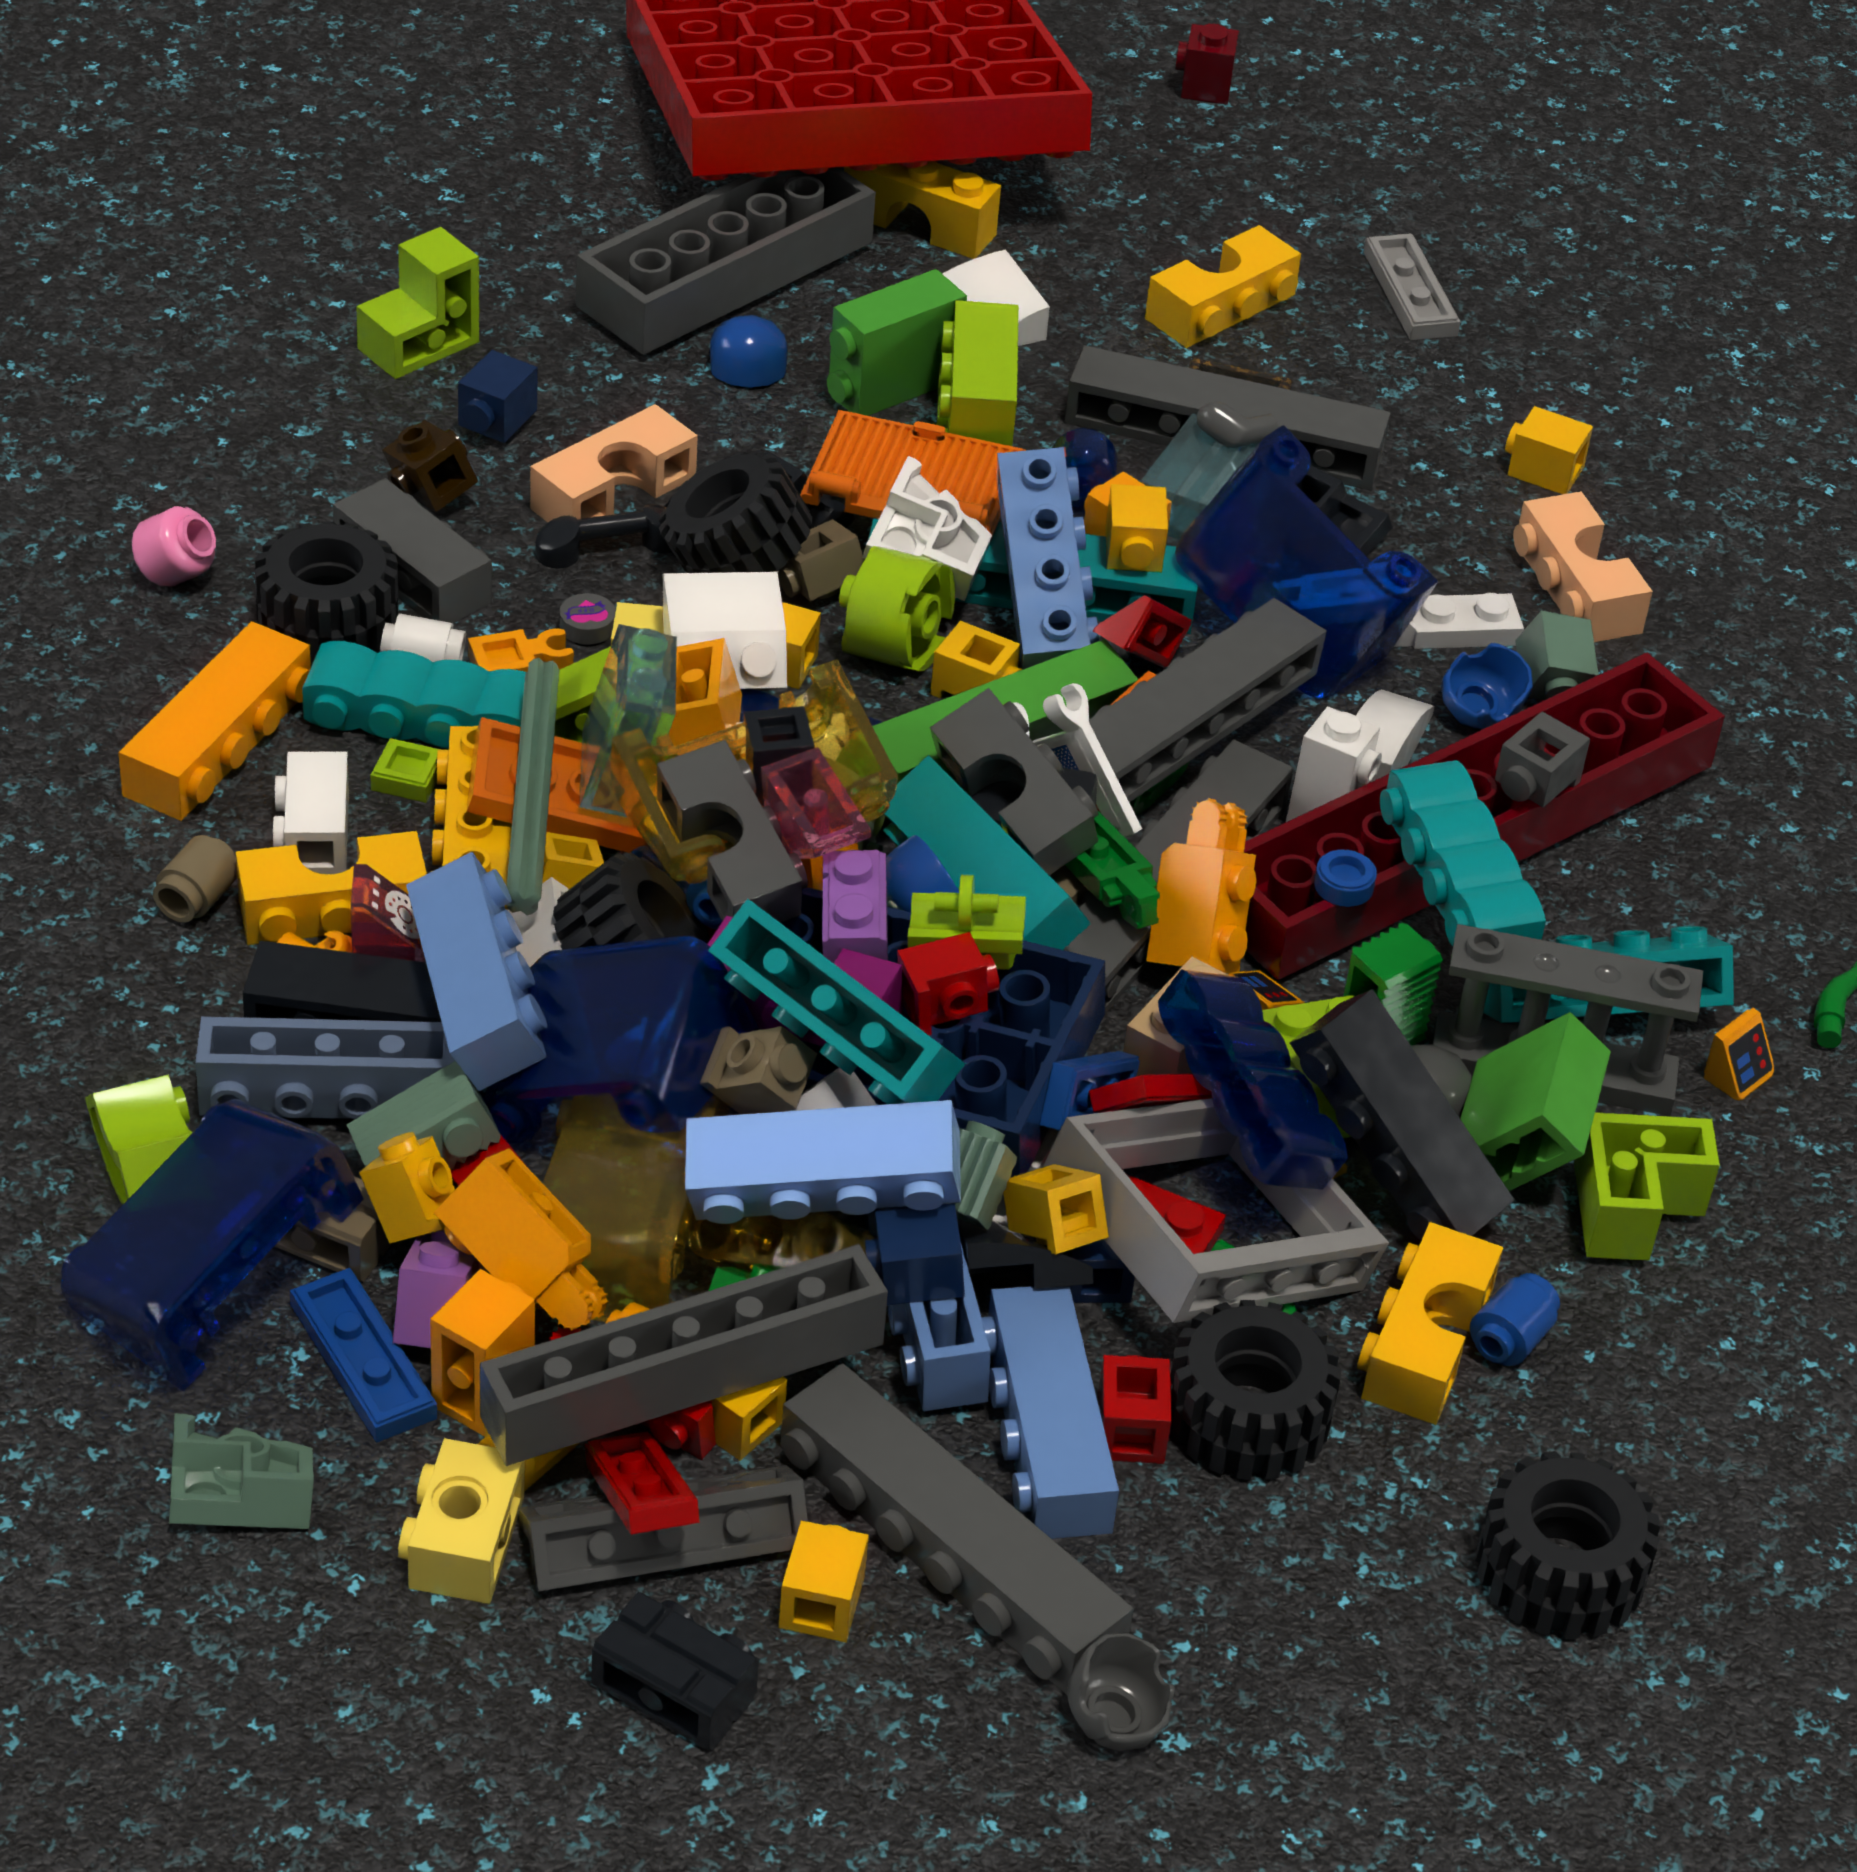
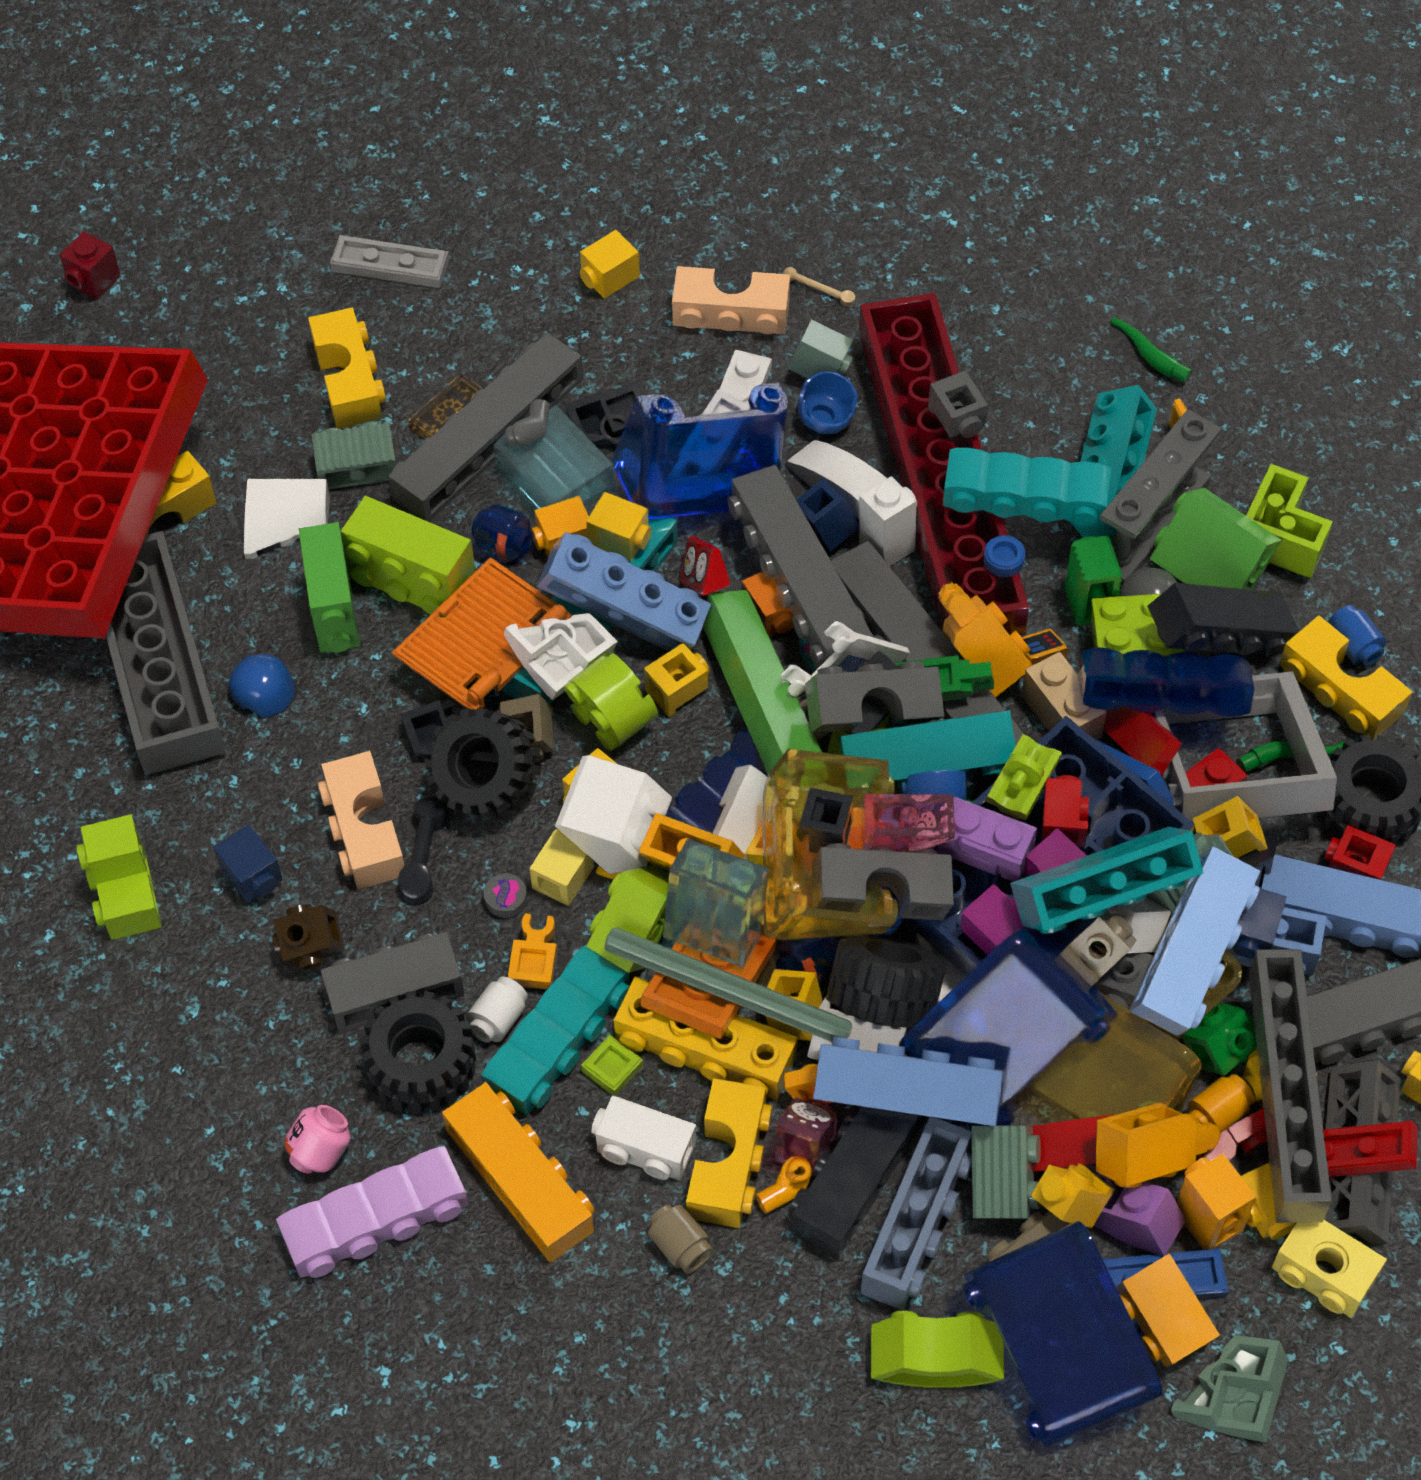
camera: 60 degrees left, 15 degrees up
(107, 619) = (369, 1212): none -> lavender brick
(304, 1350) = (1166, 1311): none -> light orange brick
(1104, 319) = (354, 455): none -> sand green brick
(1294, 713) = (828, 514): none -> dark blue brick
(1676, 618) = (846, 297): none -> tan hinge

